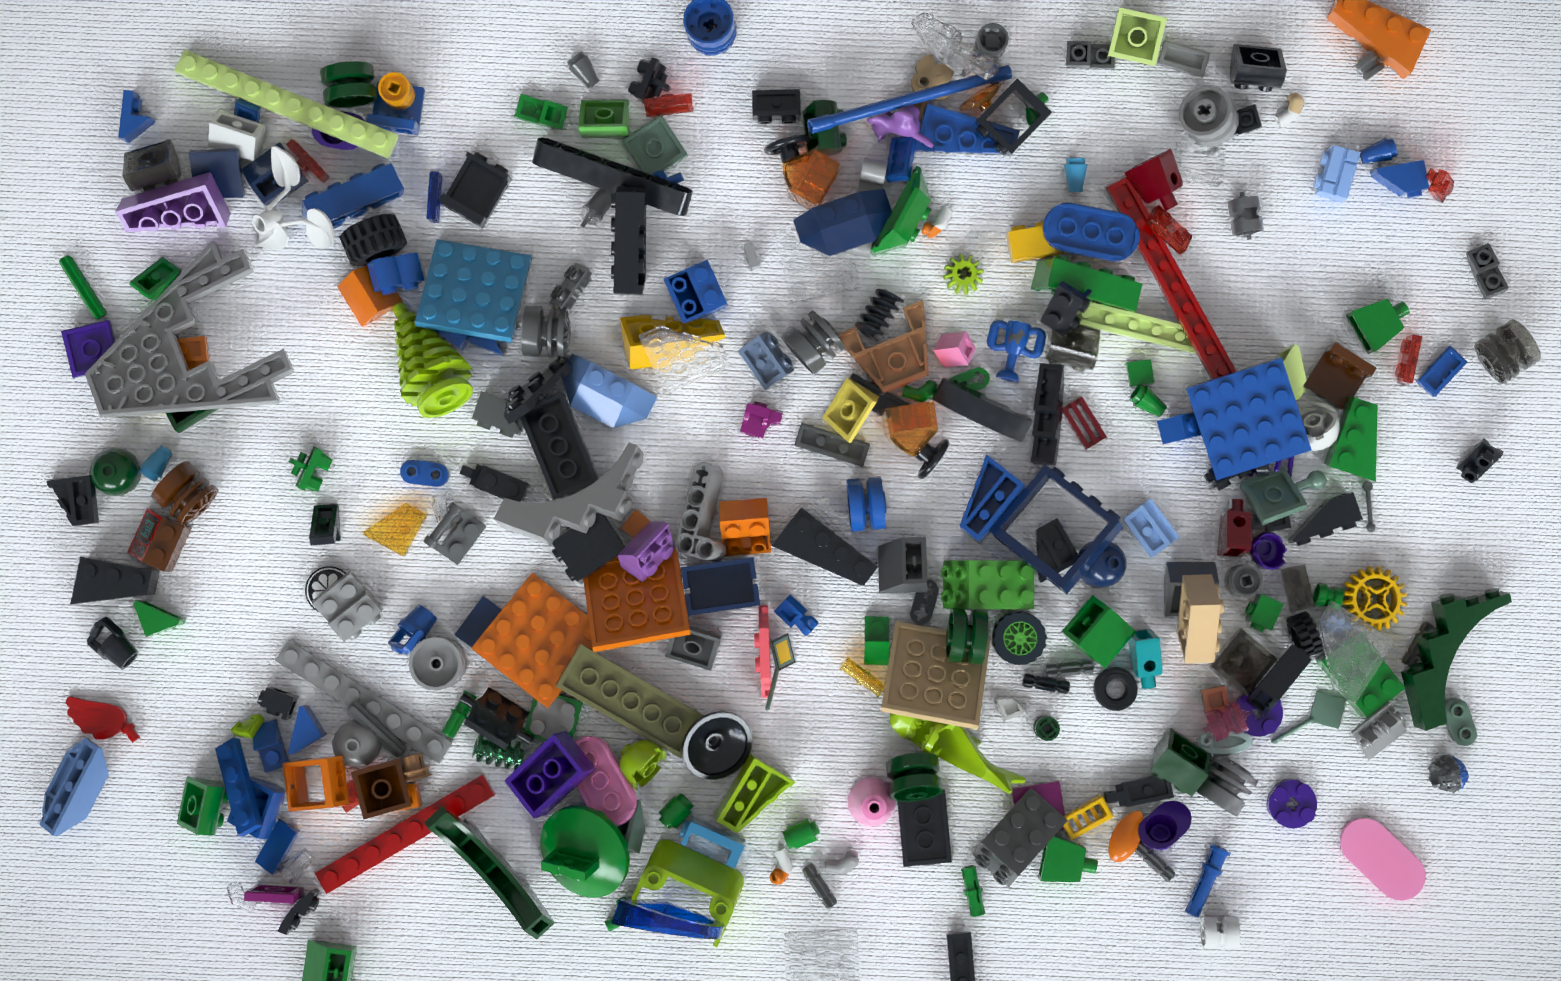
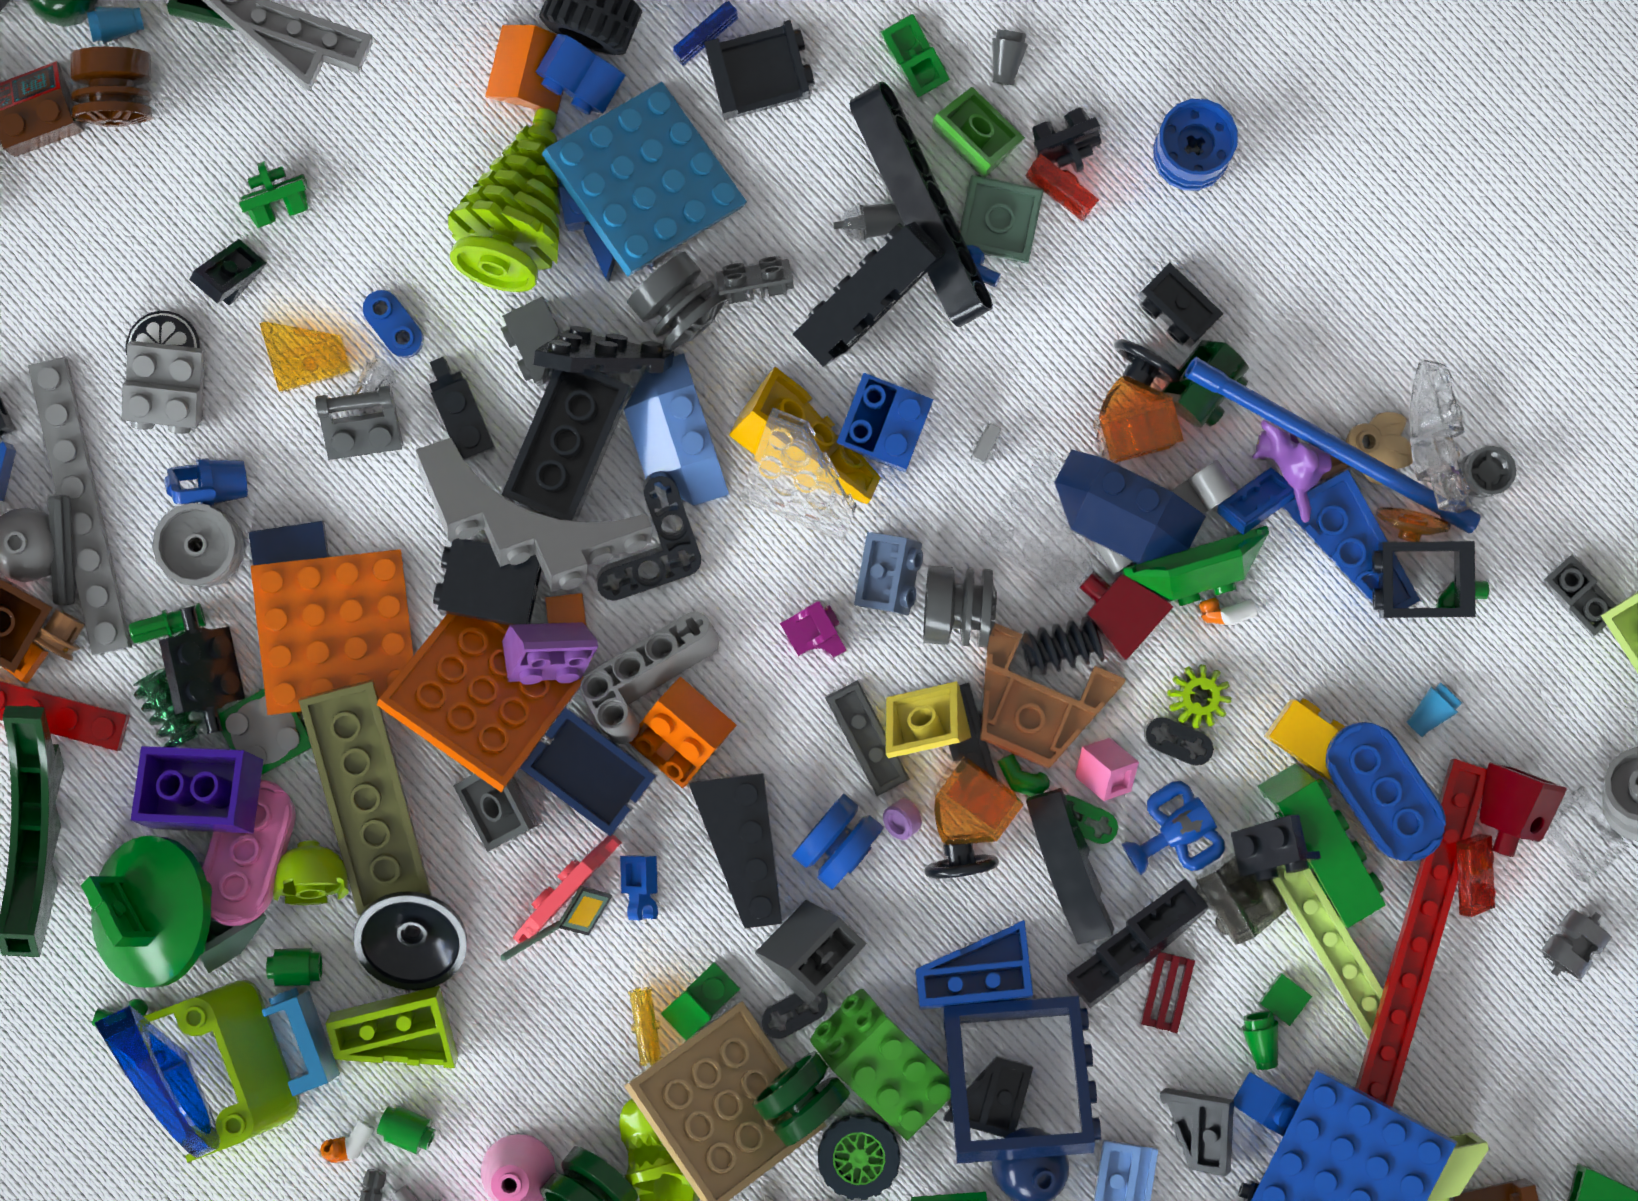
camera: 50 degrees right, 0 degrees up
(654, 447) = (671, 545): none -> black beam
(885, 465) = (902, 819): none -> lavender tile
(891, 270) = (1123, 612): none -> dark red torso
(976, 309) = (1182, 733): none -> black beam
(1161, 468) = (1203, 1128): none -> wing

